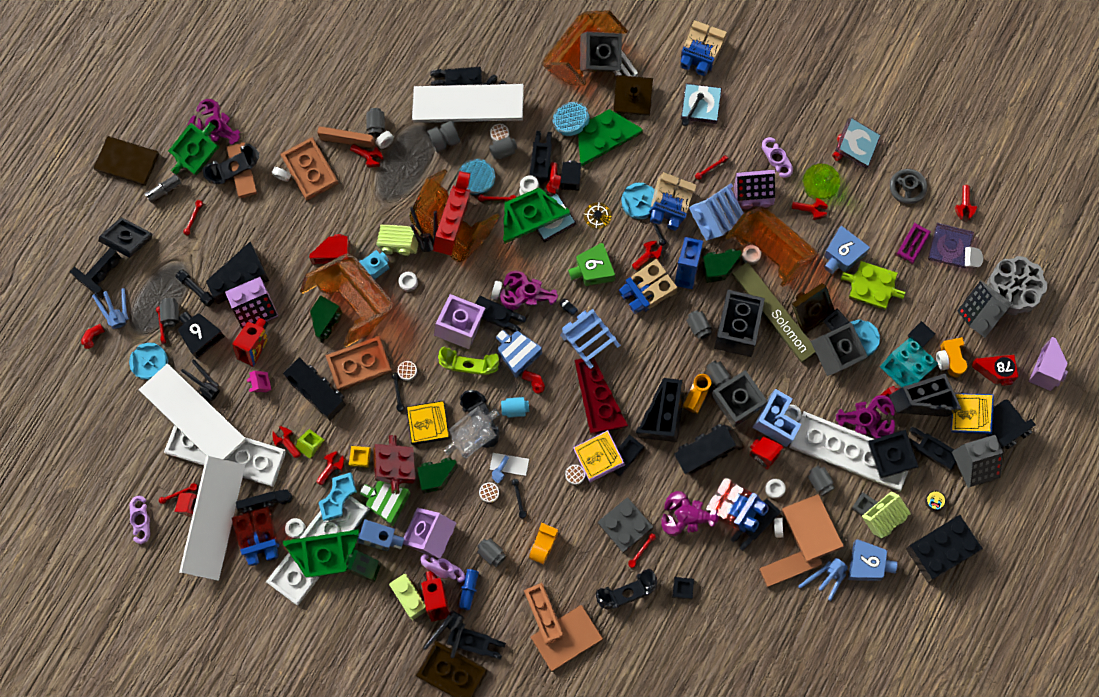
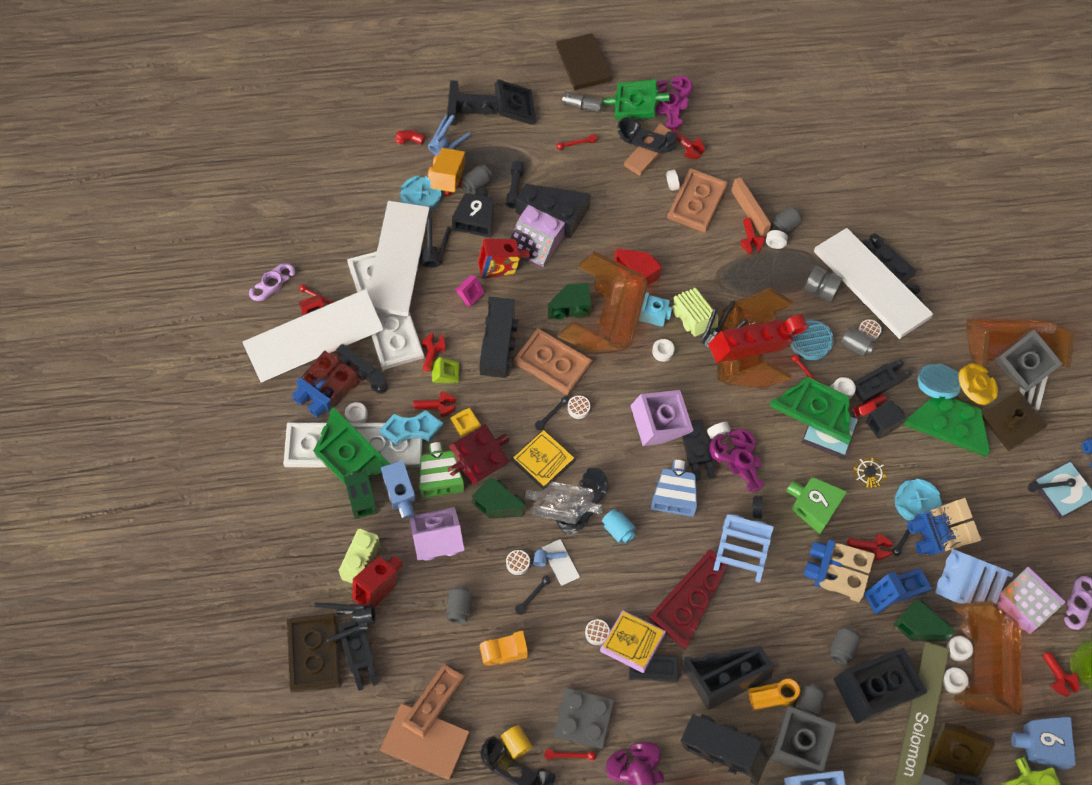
camera: 45 degrees right, 10 degrees down
(146, 327) = (447, 169): none -> light orange brick
(261, 140) = (690, 146): none -> red bar
(435, 567) = (404, 561): lavender piece -> none
(452, 362) = (618, 439): lime piece -> none
(468, 589) = (407, 609): blue axle -> none
(536, 381) = (661, 529): red arm -> none
(592, 96) = (978, 384): none -> yellow tile
(610, 578) = (516, 741): none -> yellow piece
(698, 176) = (993, 539): red hinge -> none
(768, 274) = (955, 680): none -> white tile

